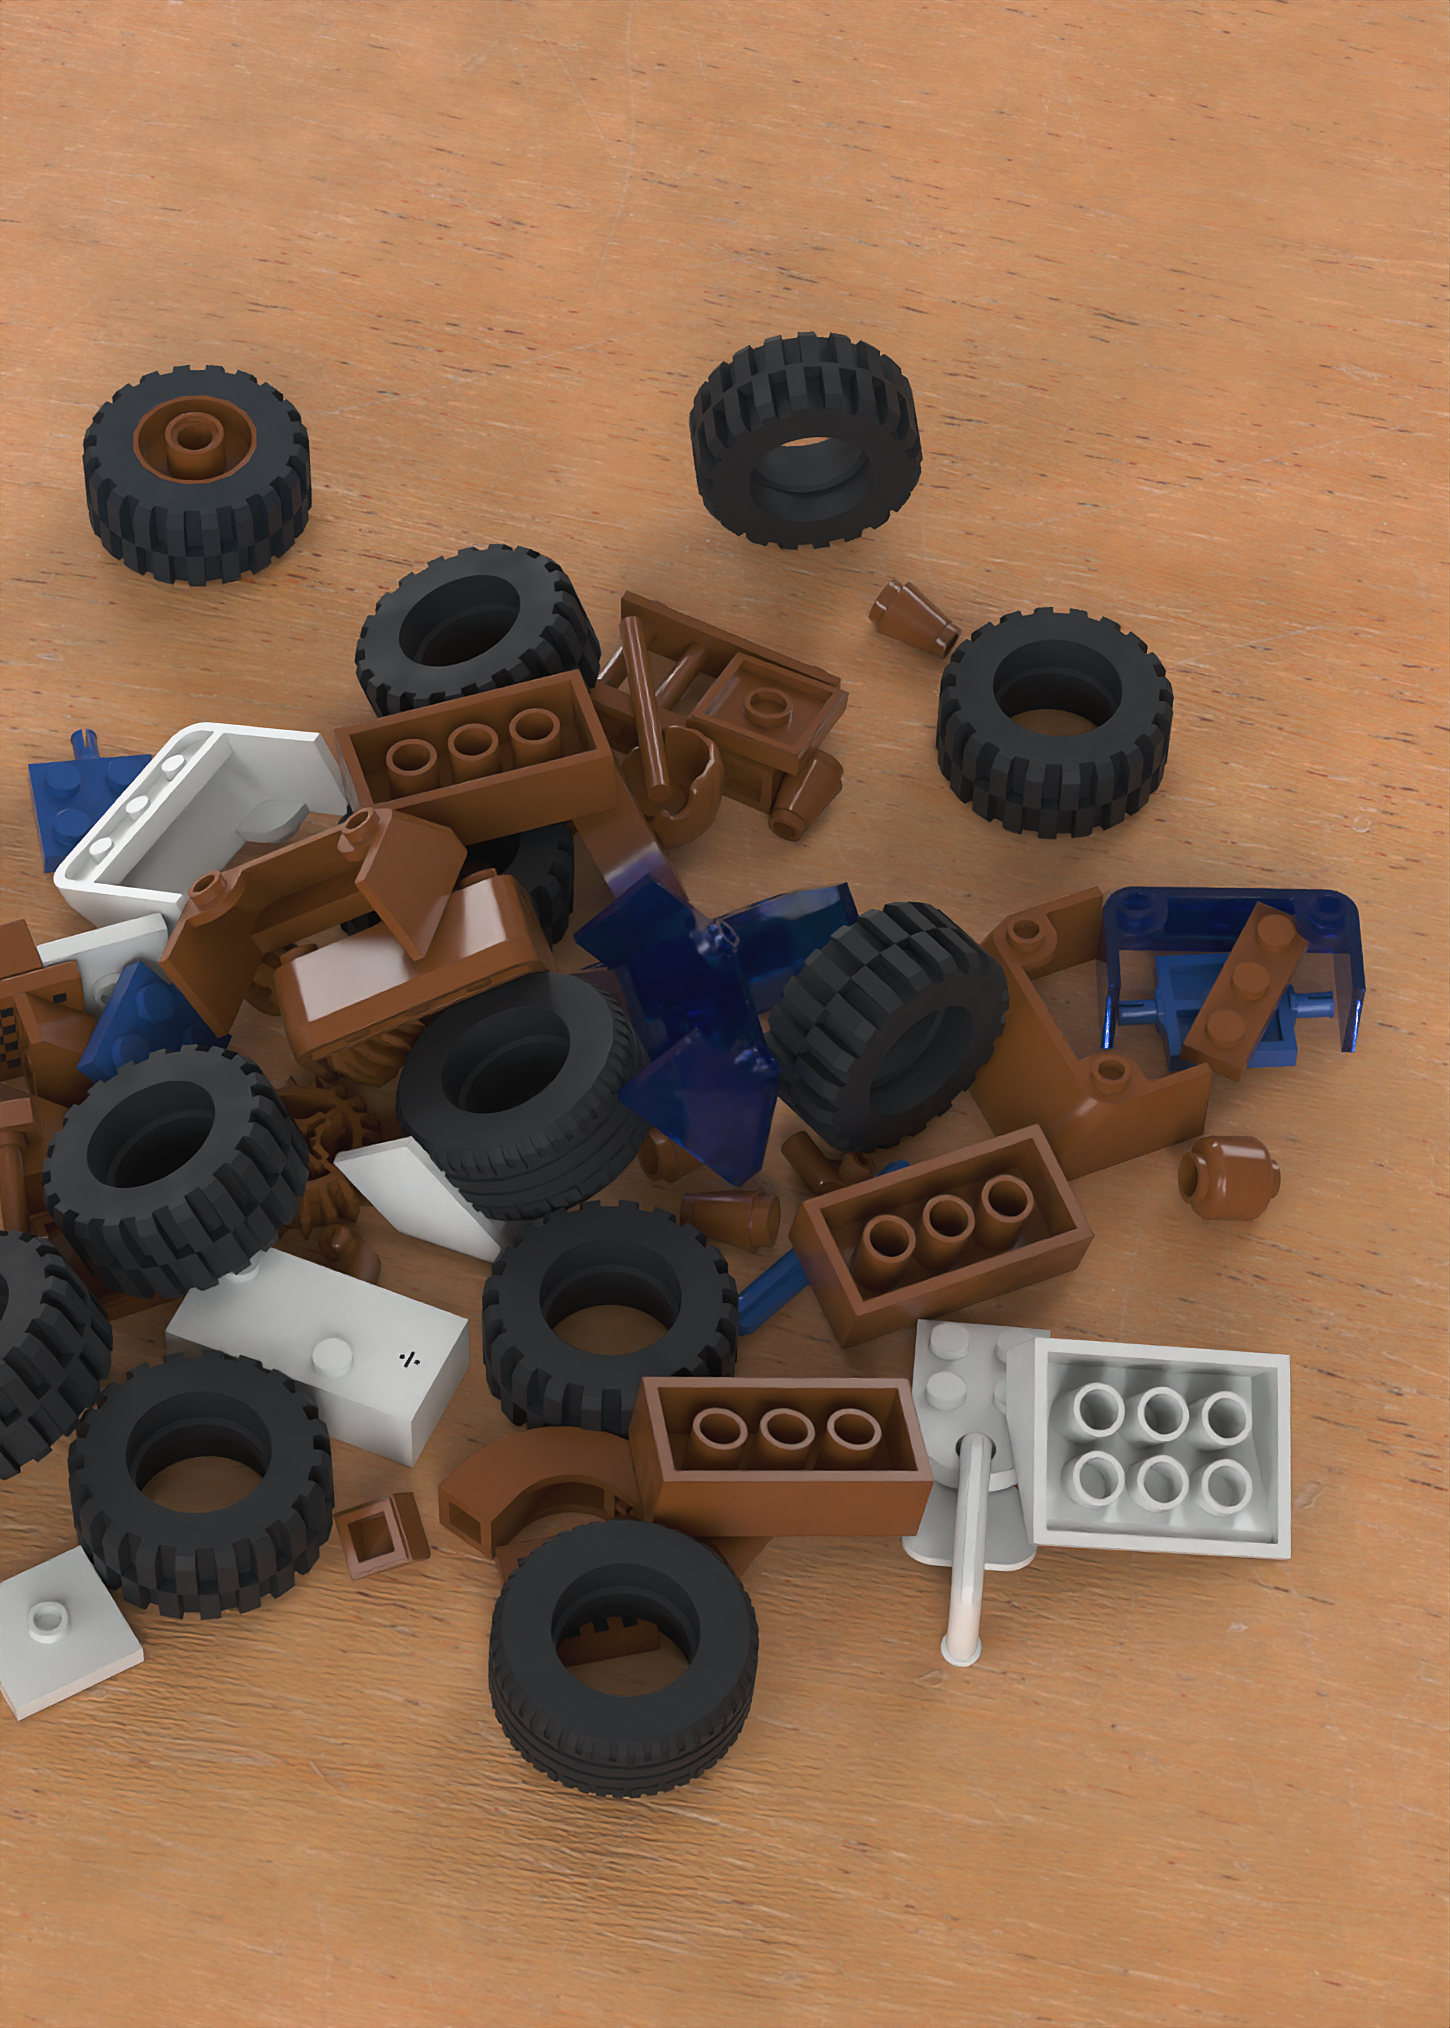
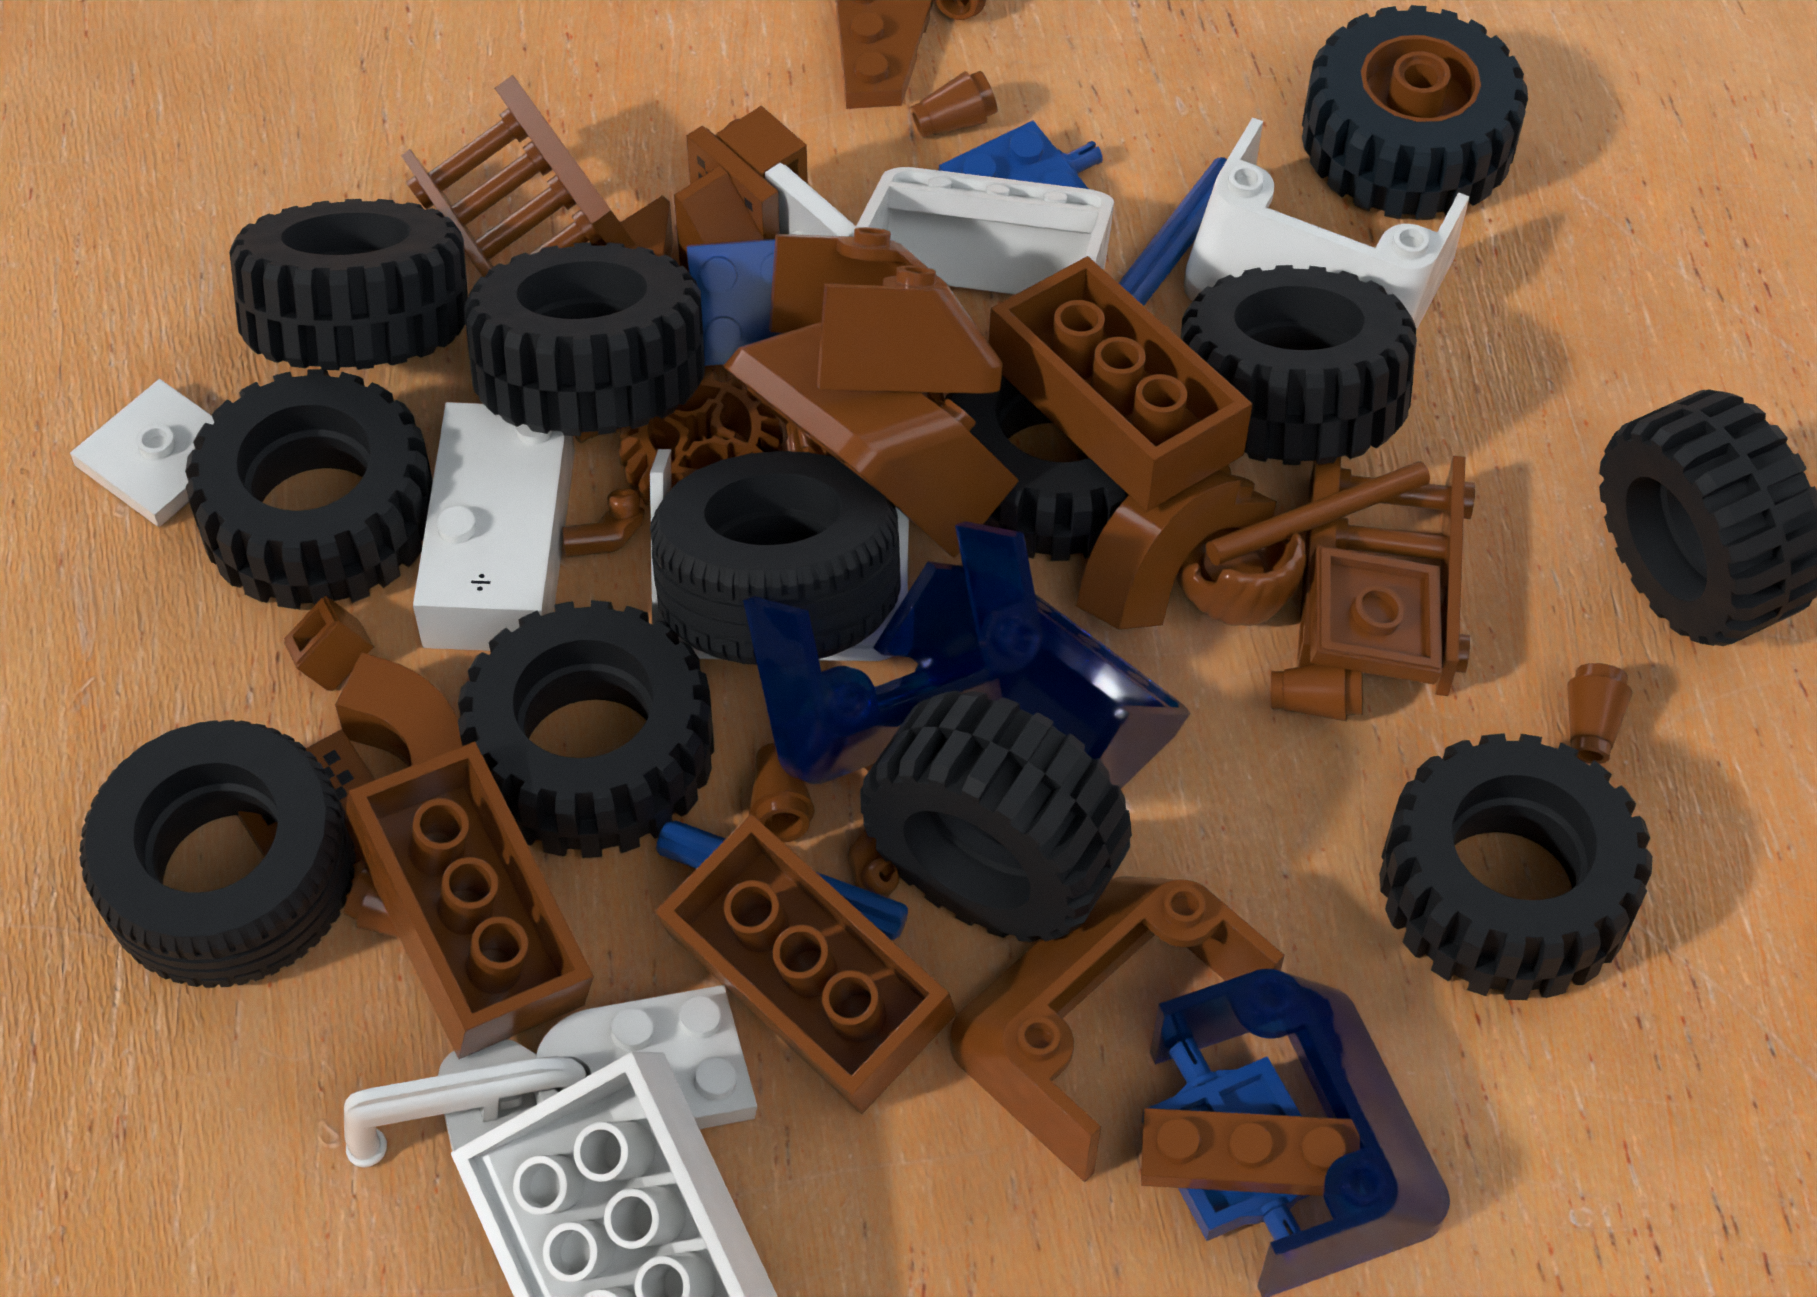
camera: 70 degrees right, 5 degrees up
(200, 682) = (1172, 239): none -> blue axle
(299, 661) = (1246, 235): none -> white windscreen
(1228, 1178) = (1012, 1213): dark orange head -> none

